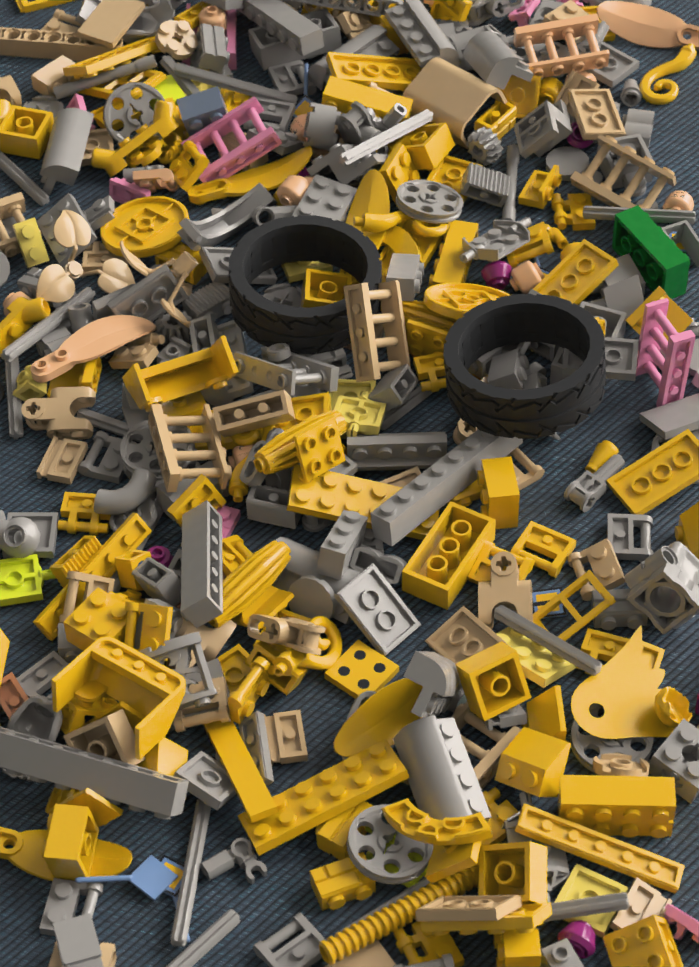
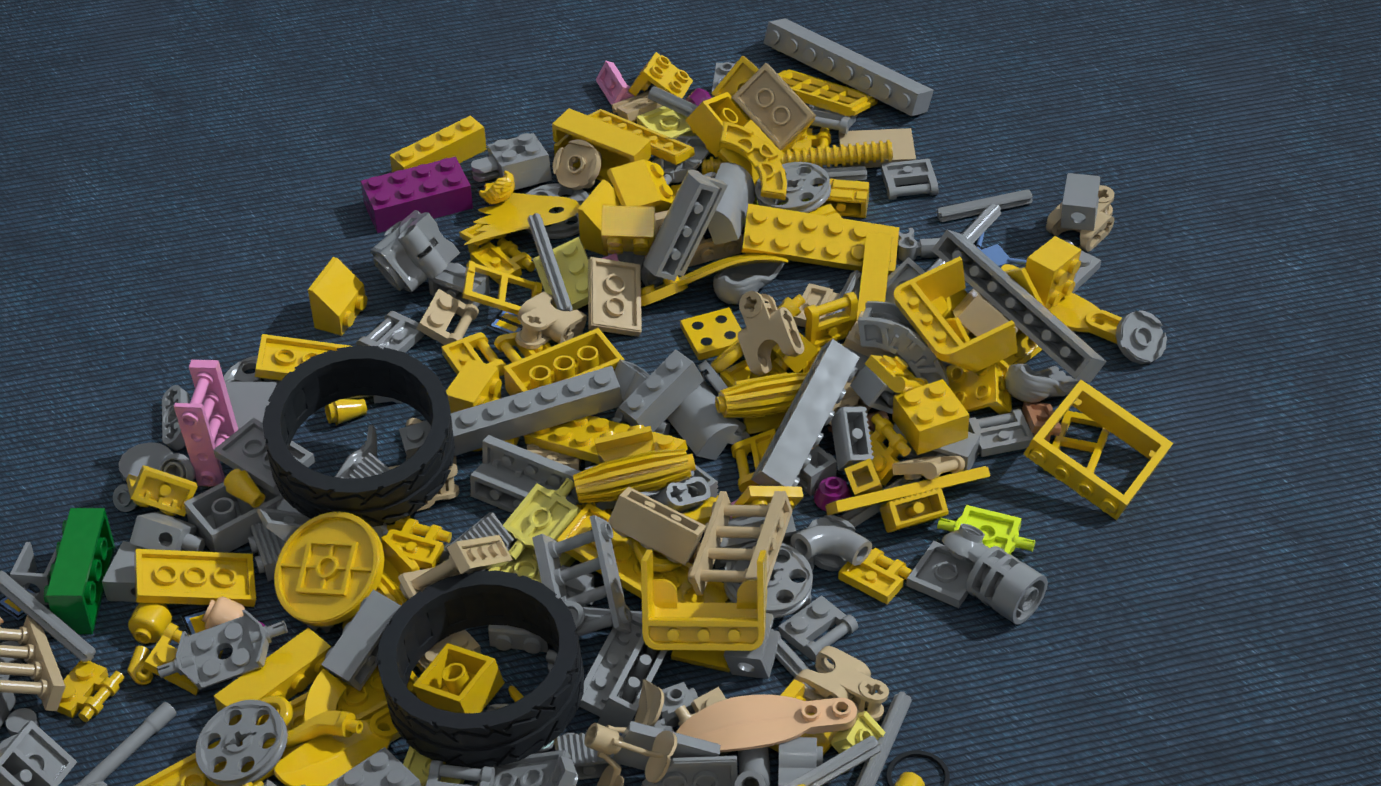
camera: 150 degrees left, 5 degrees down
(62, 460) = (870, 639): tan plate -> none
(377, 610) = (657, 351): light grey tile -> none
(485, 185) = (152, 749): light grey brick -> none
(540, 188) = (91, 727): yellow bracket -> none

